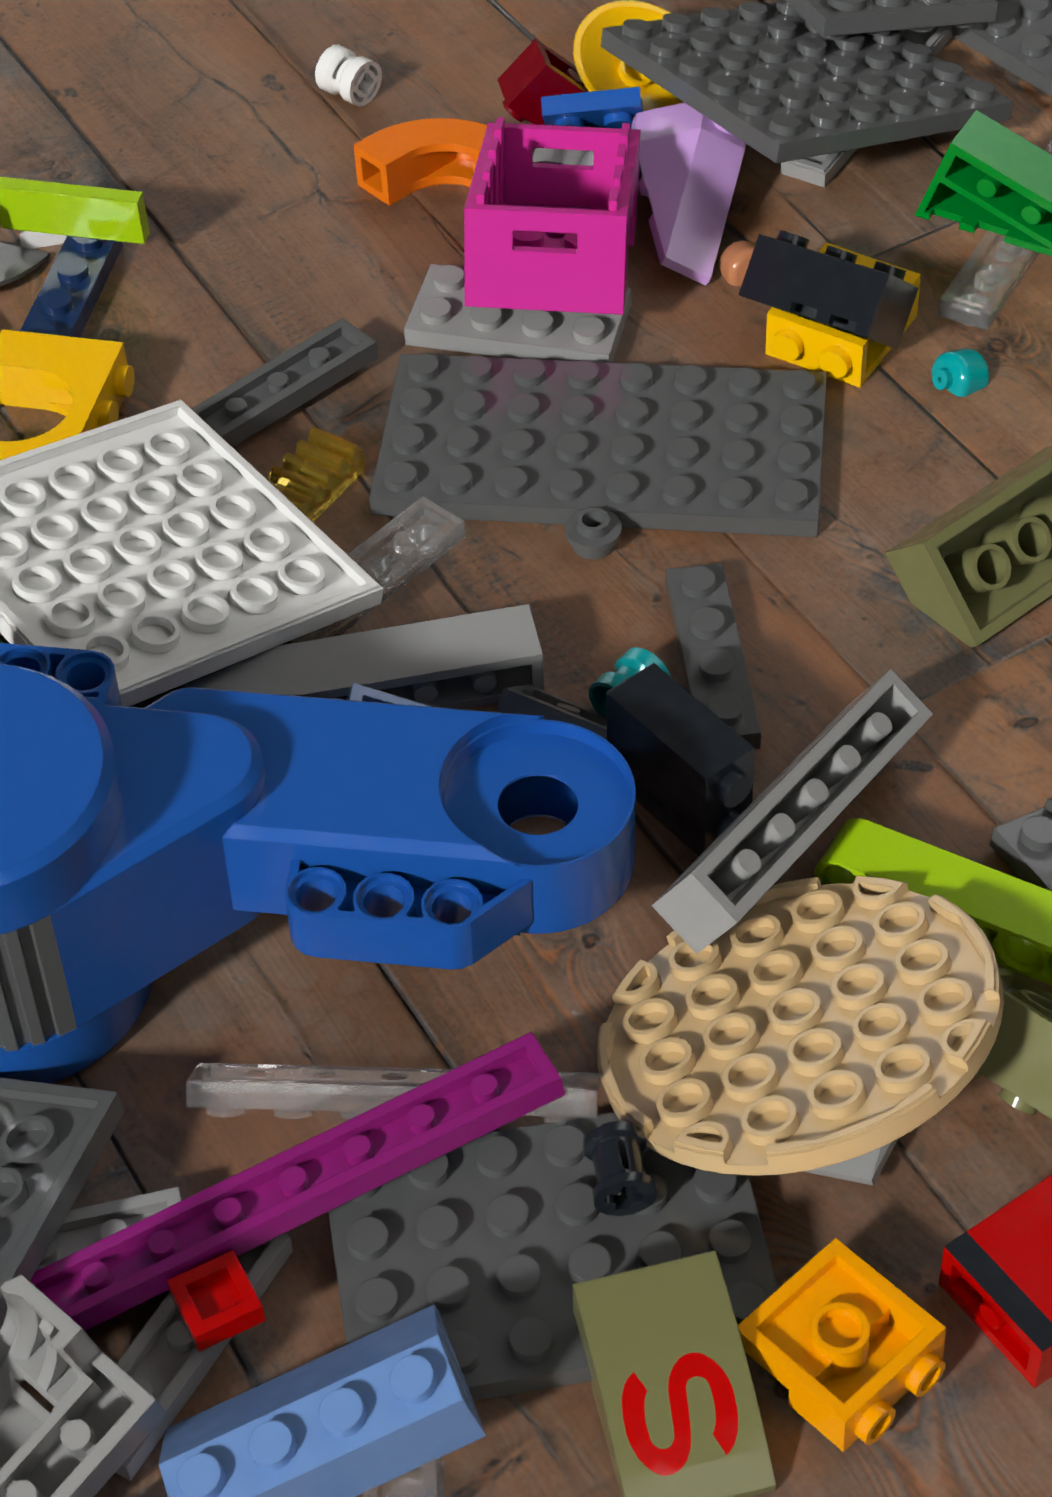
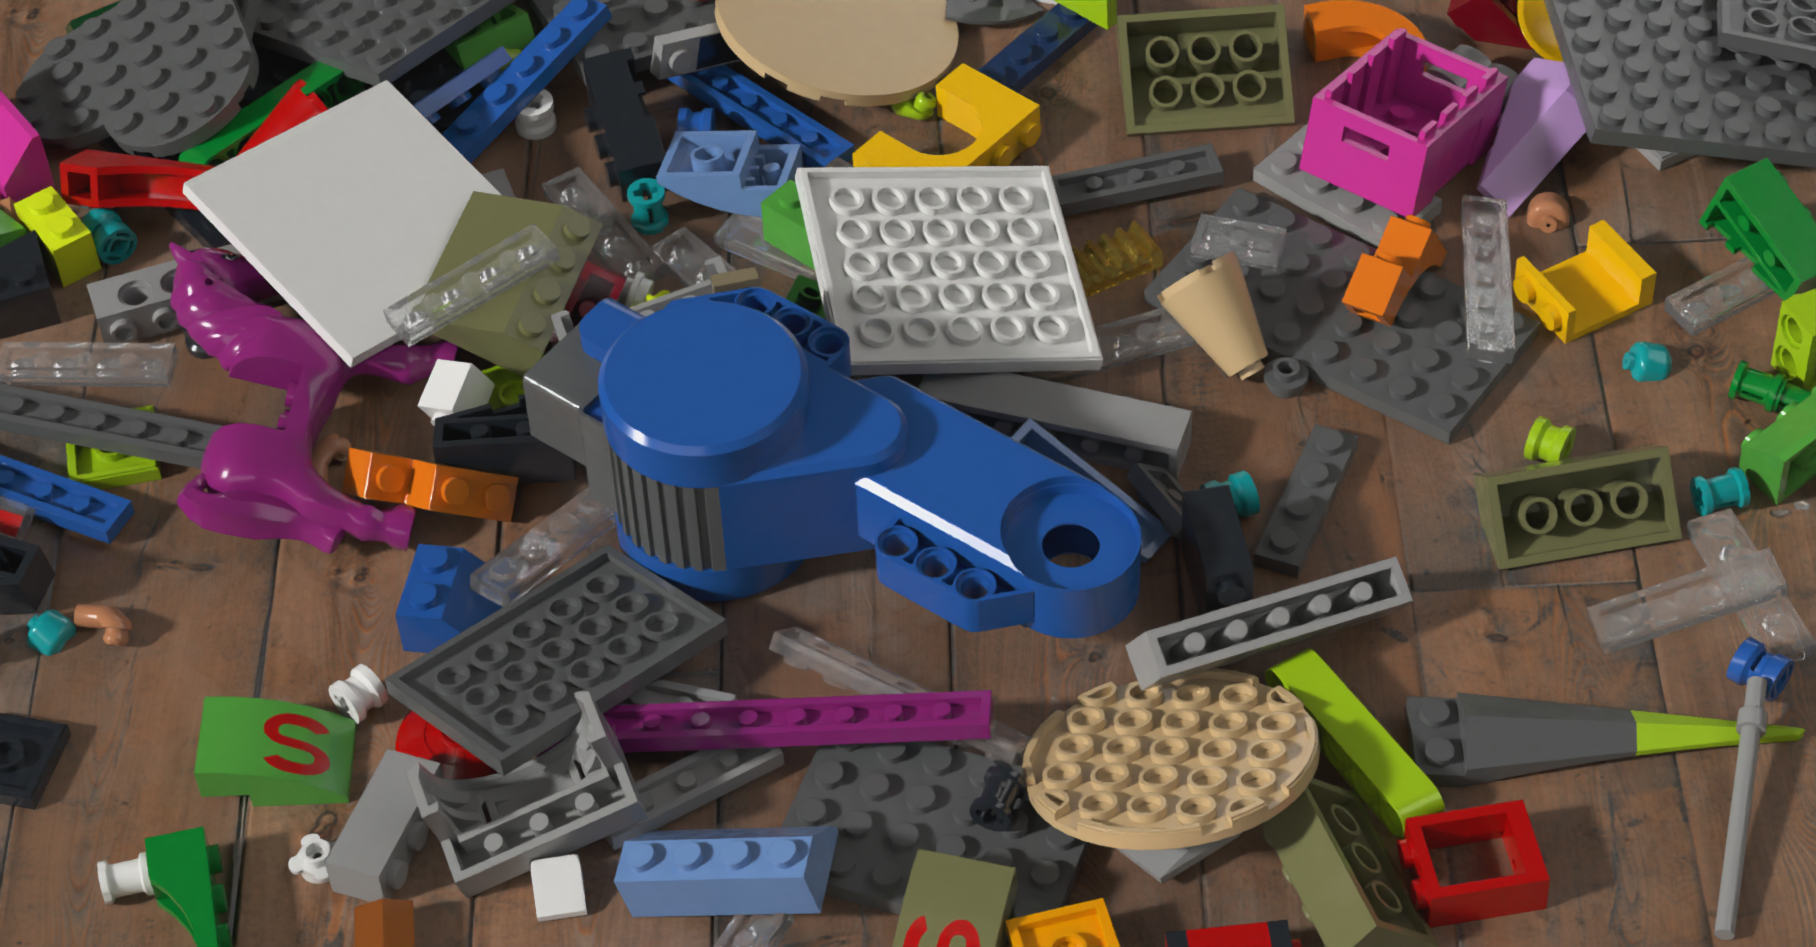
camera: 30 degrees right, 0 degrees up
(216, 1300) = (712, 767): red plate -> none
(280, 247) = (1205, 70): none -> olive slope
(452, 404) = (1252, 242): none -> clear plate
(489, 488) = (1219, 315): none -> tan cone
(593, 108) = (1504, 43): blue plate -> none
(648, 369) = (1385, 279): none -> orange arch
(753, 346) = (1487, 280): none -> clear plate
(829, 288) = (1576, 260): black wedge -> none
(933, 488) = (1549, 441): none -> lime wheel

